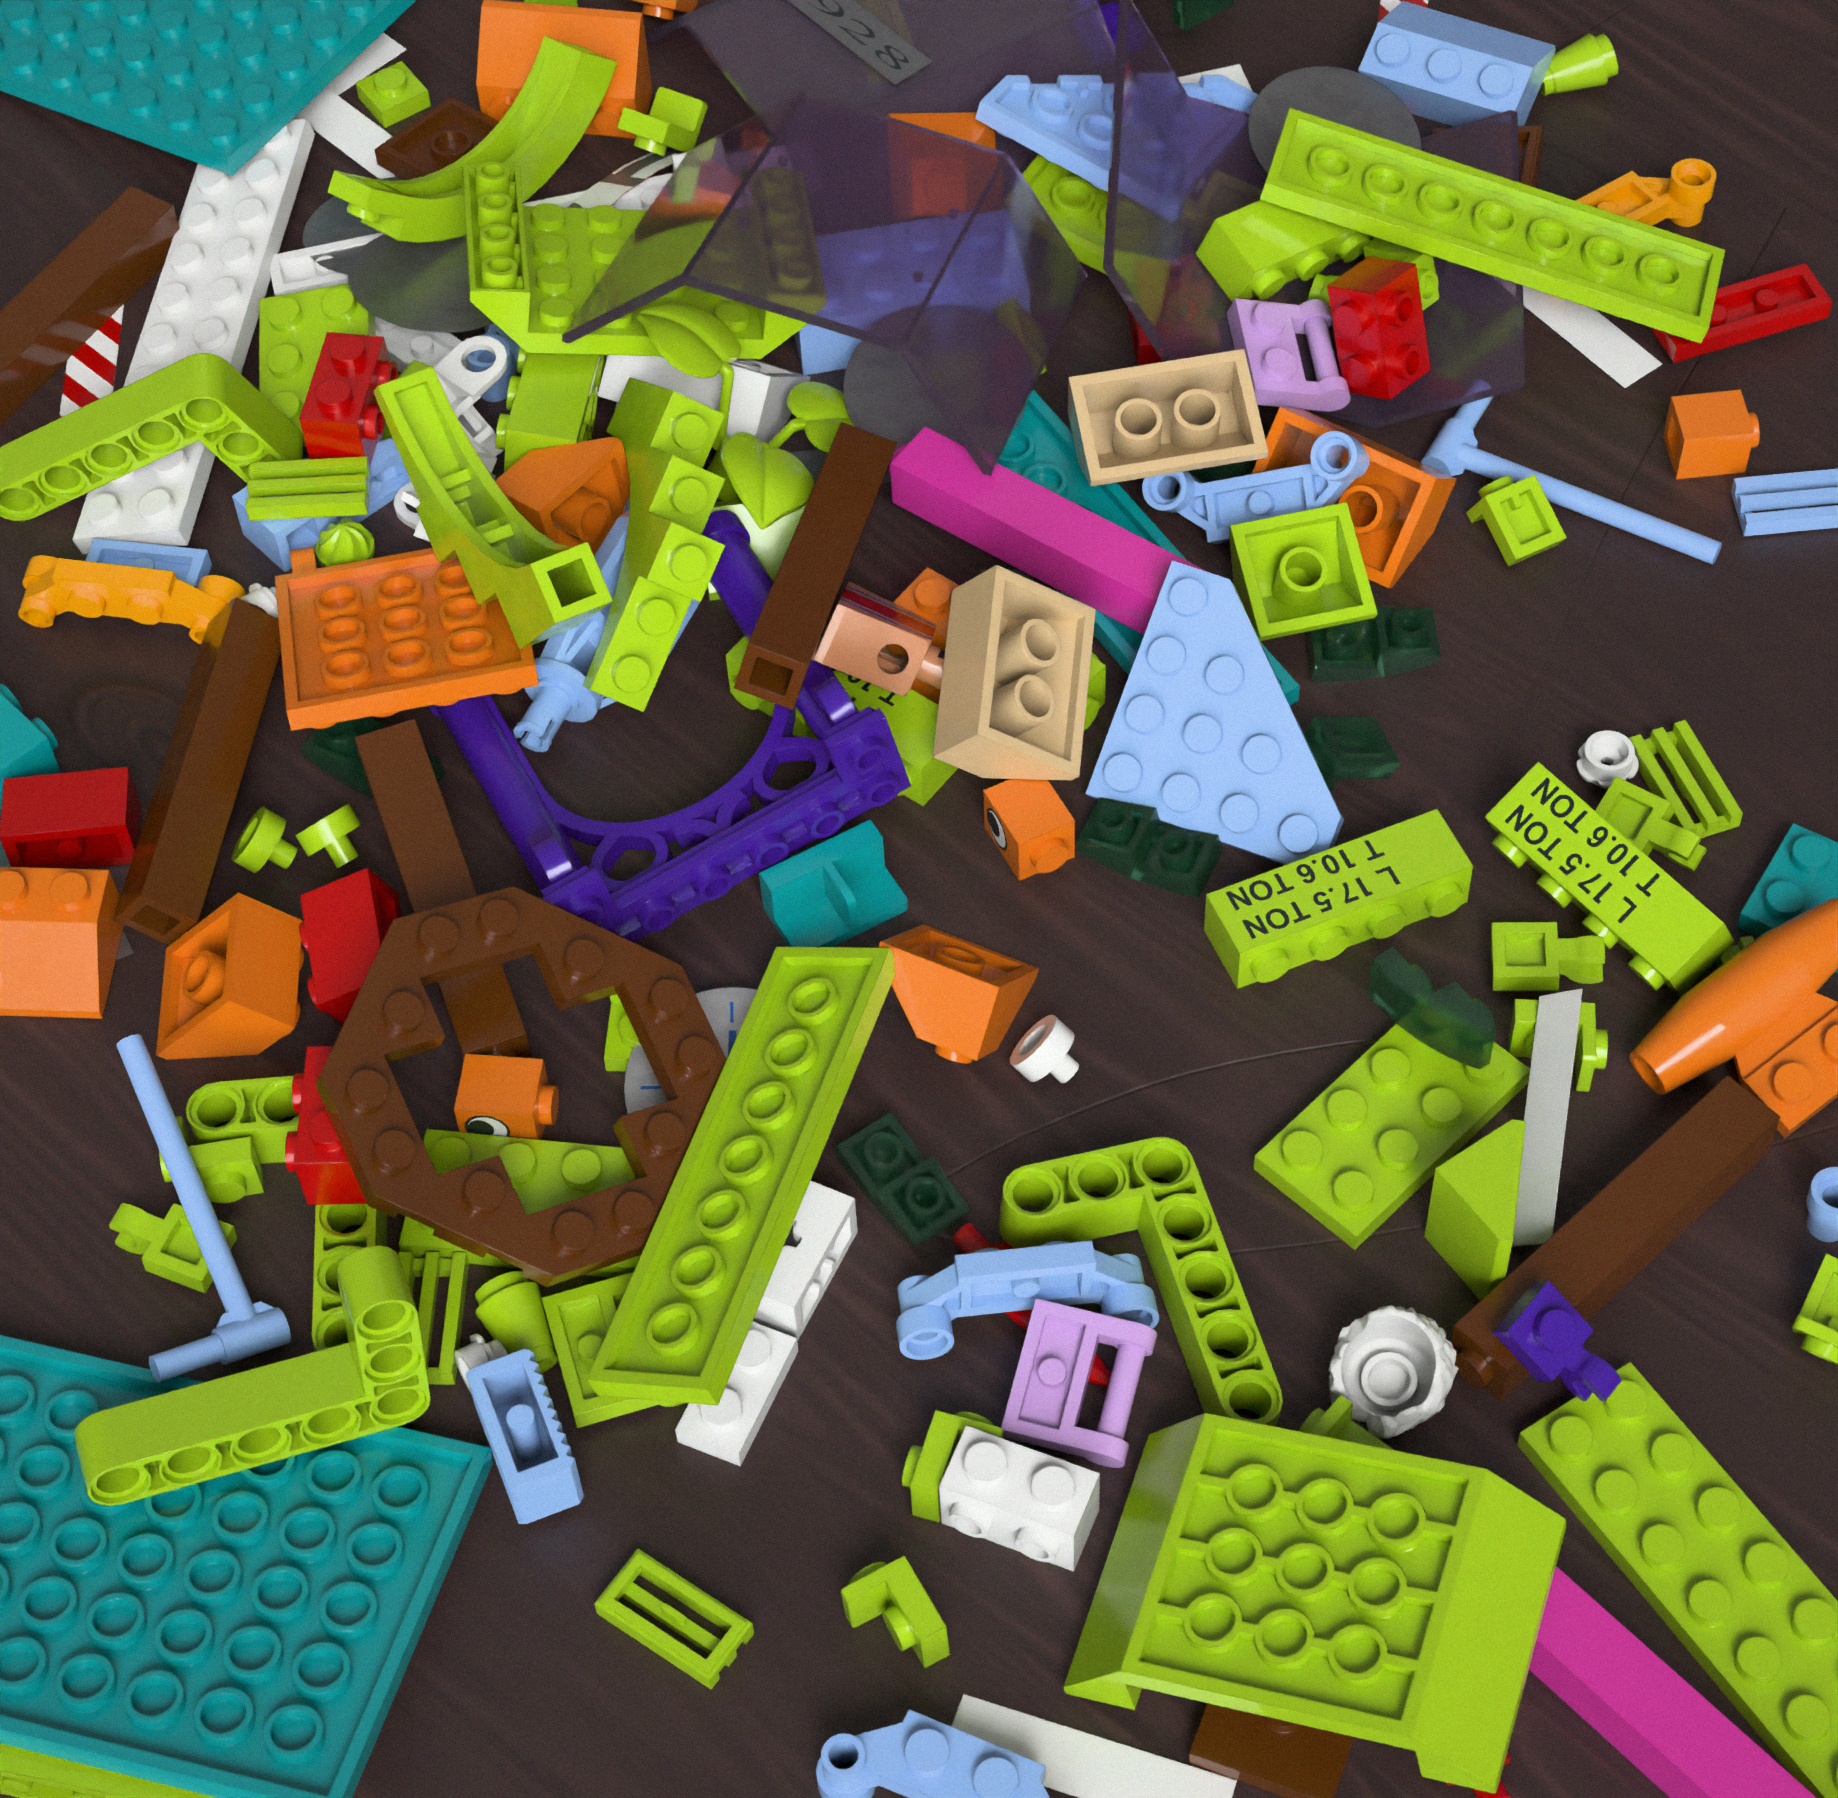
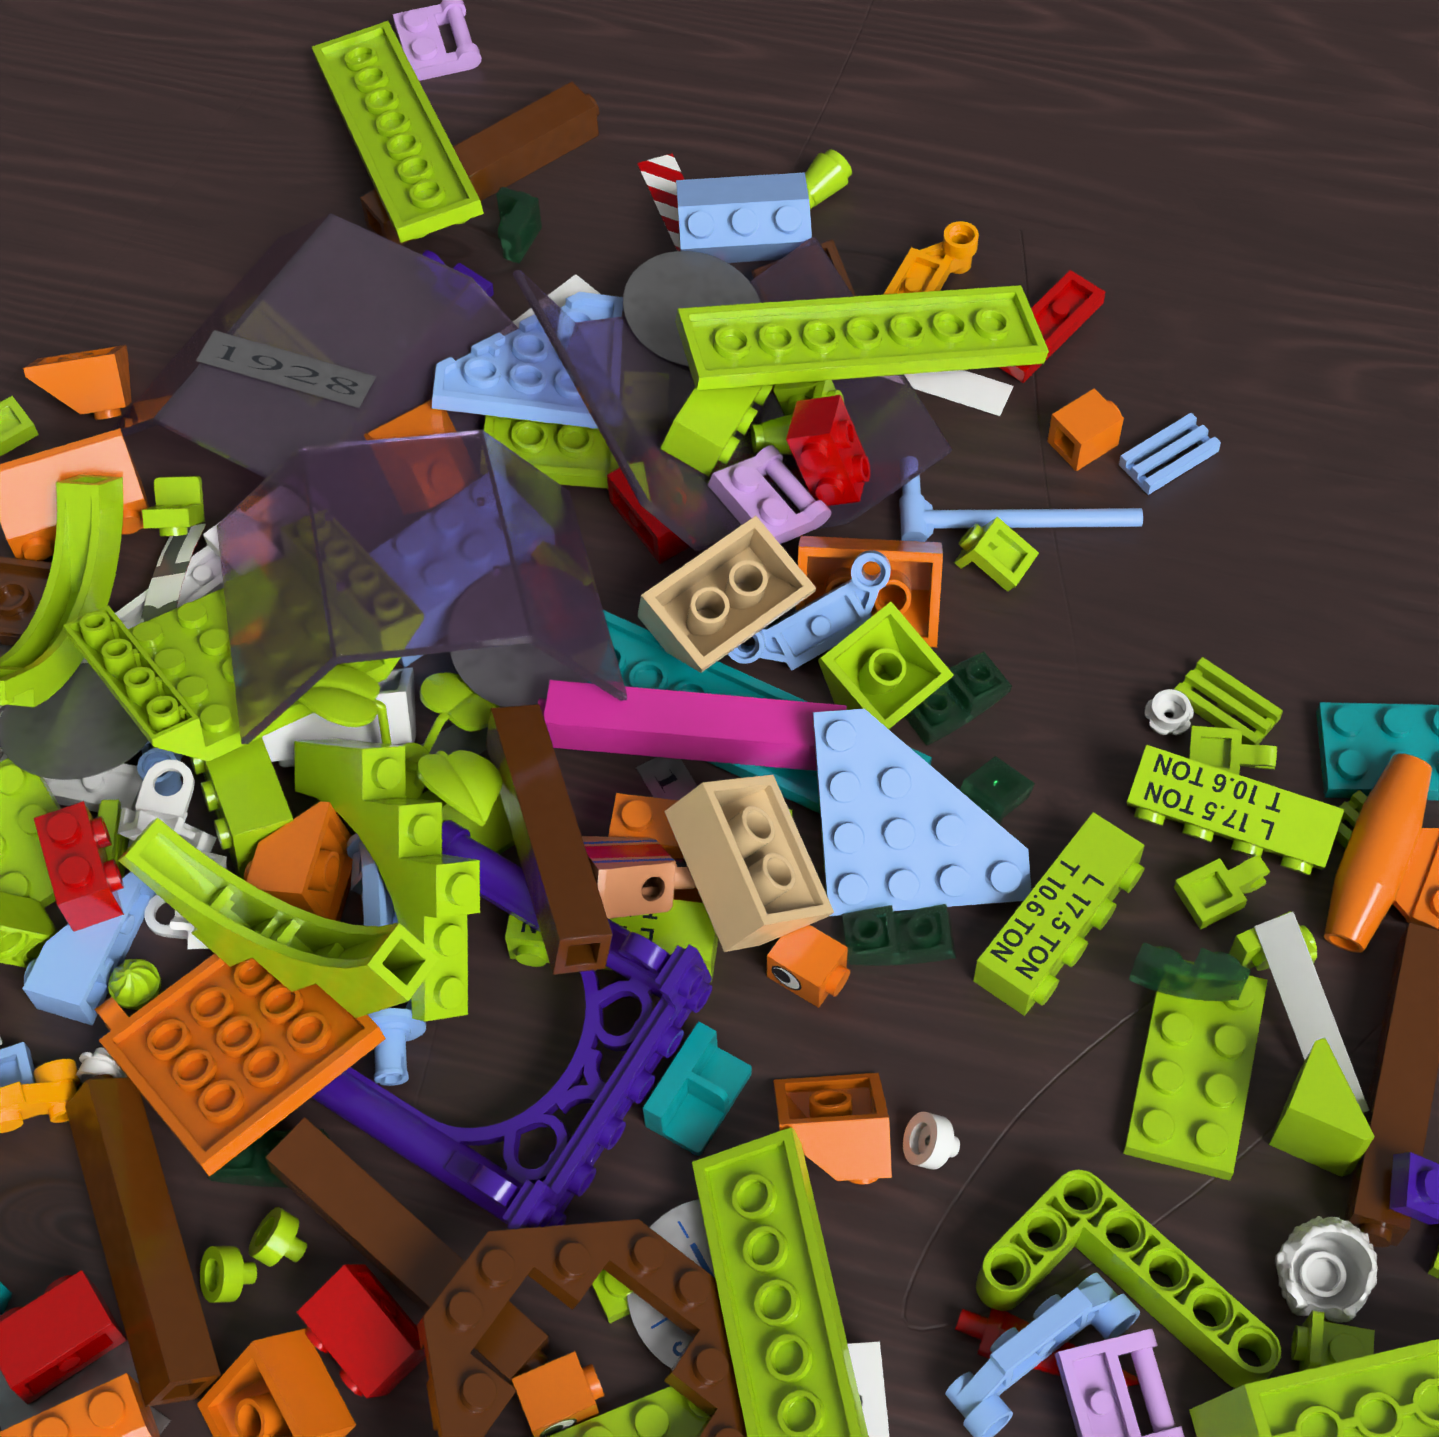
camera: 30 degrees left, 5 degrees up
(308, 480) = (80, 948): lime tile -> none
(900, 1182) = (891, 1302): clear green slope -> none

